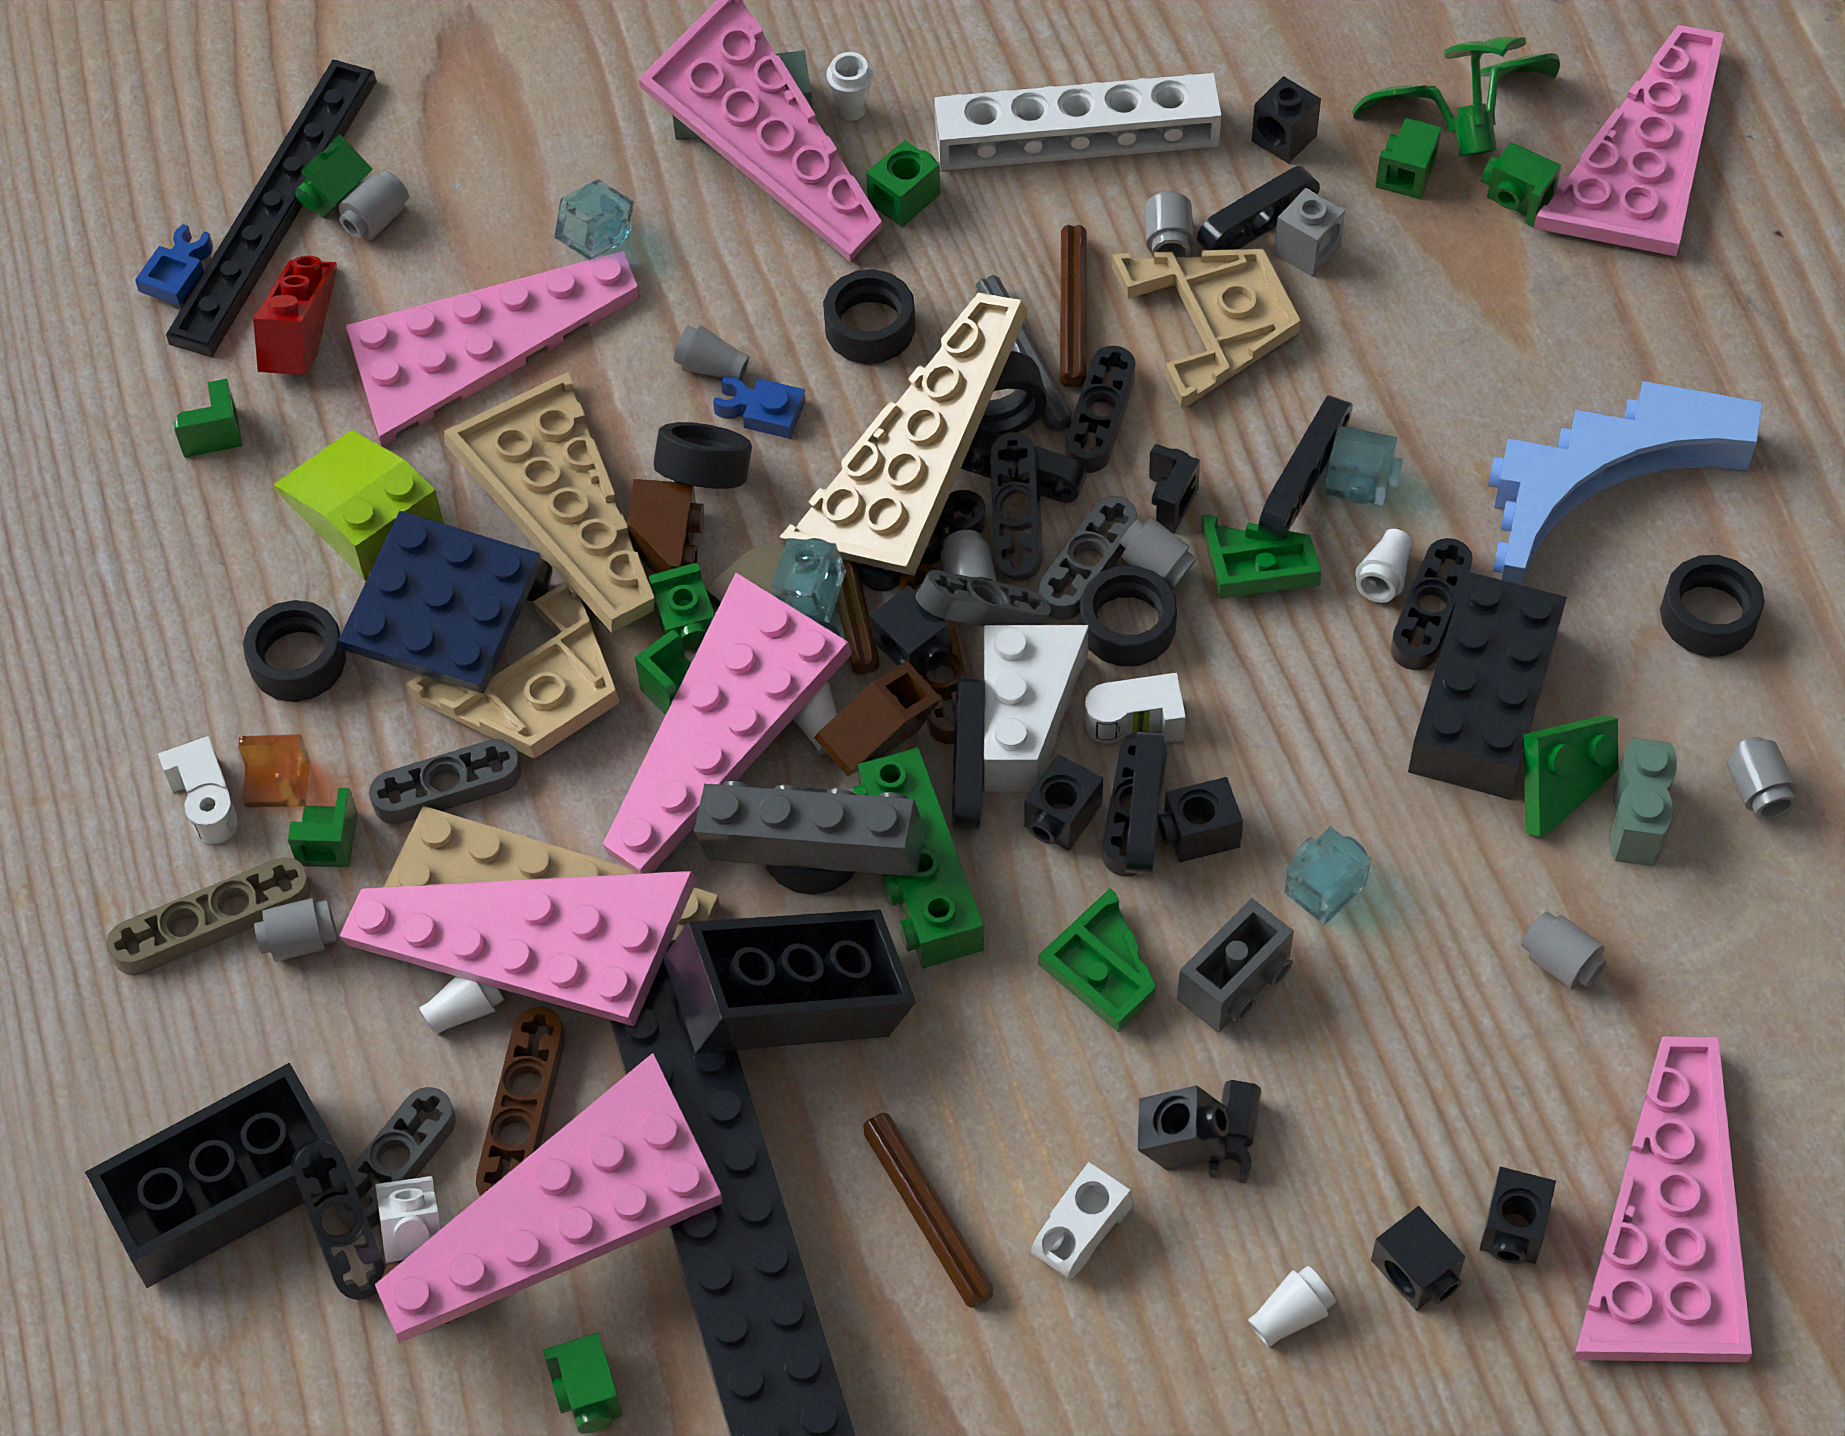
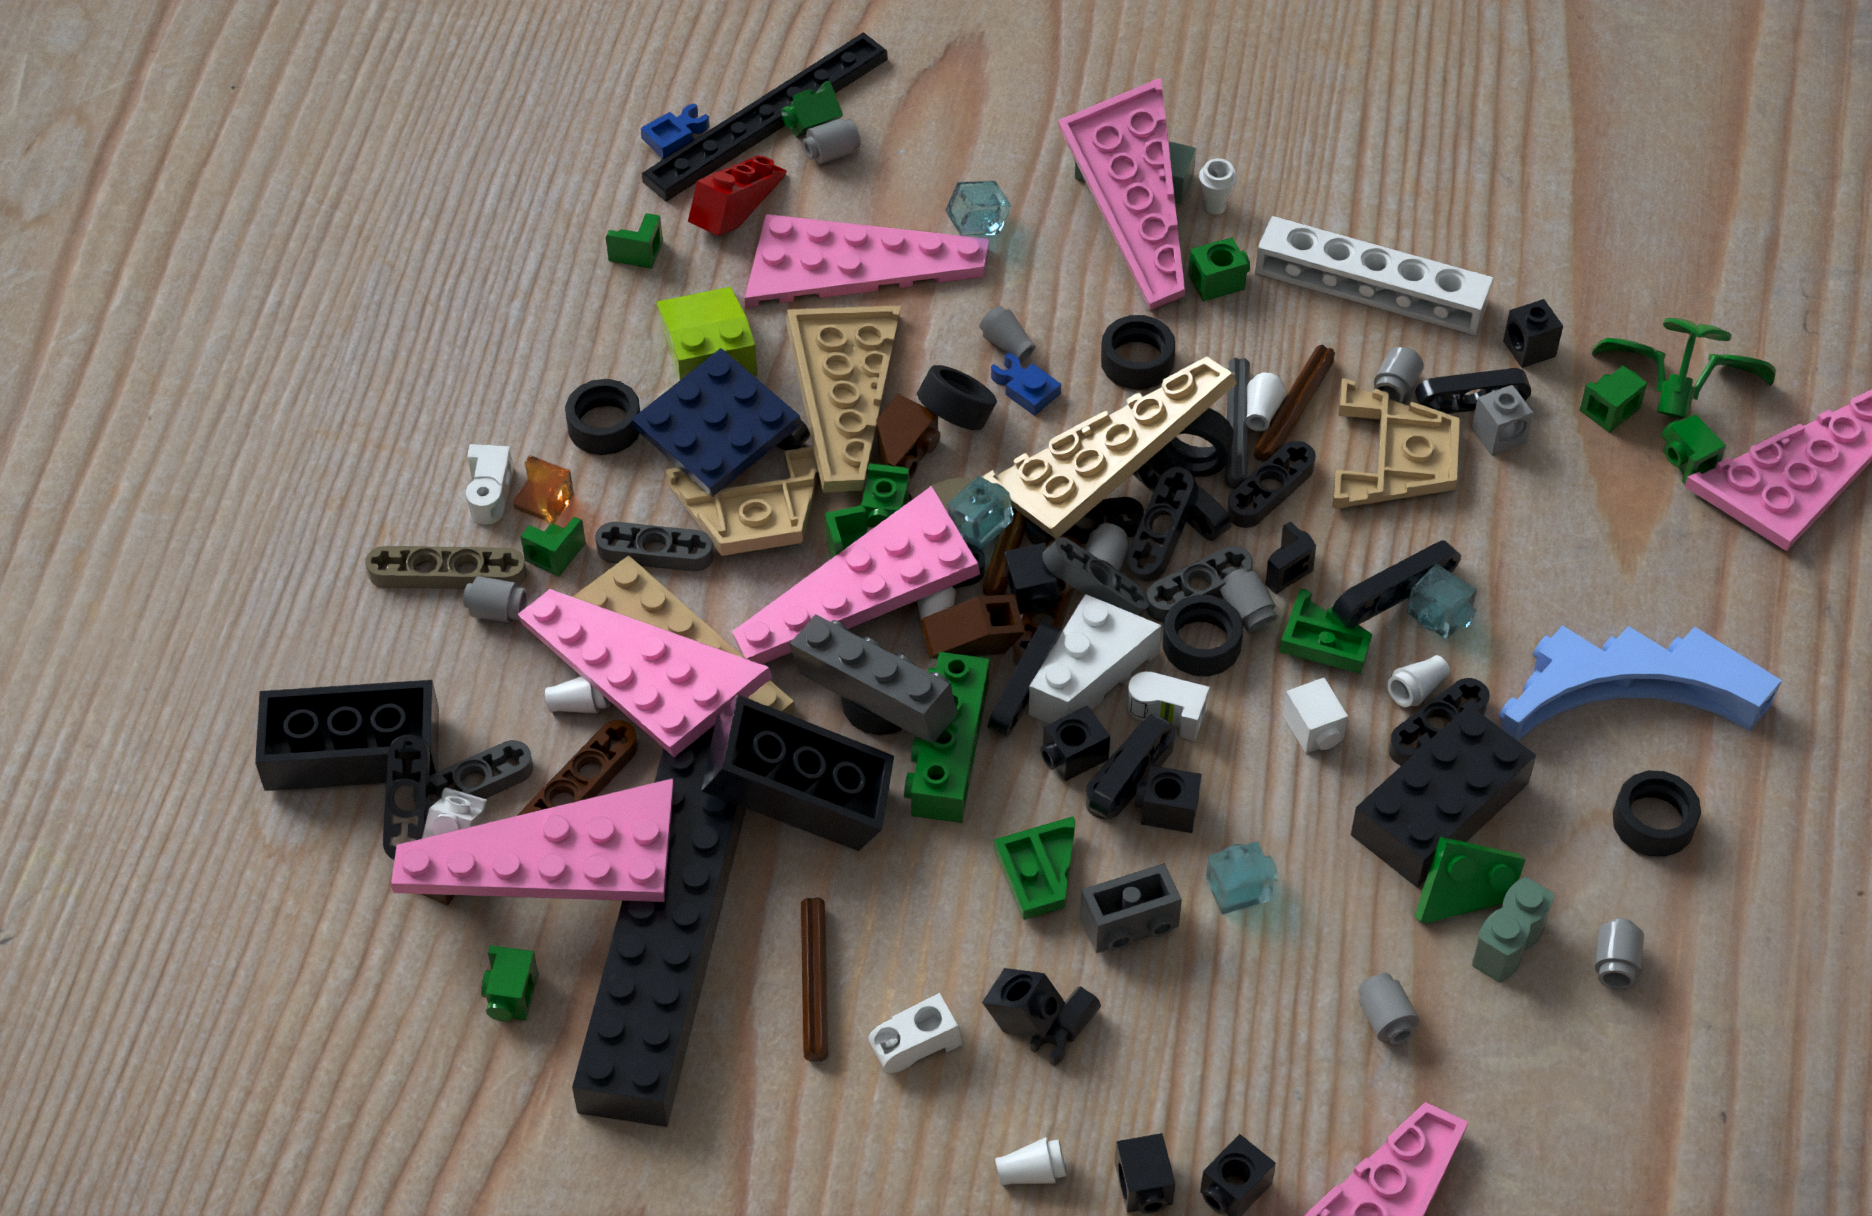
camera: 25 degrees right, 5 degrees down
(1043, 316) = (1263, 399): none -> white cone
(1302, 655) = (1315, 716): none -> white brick

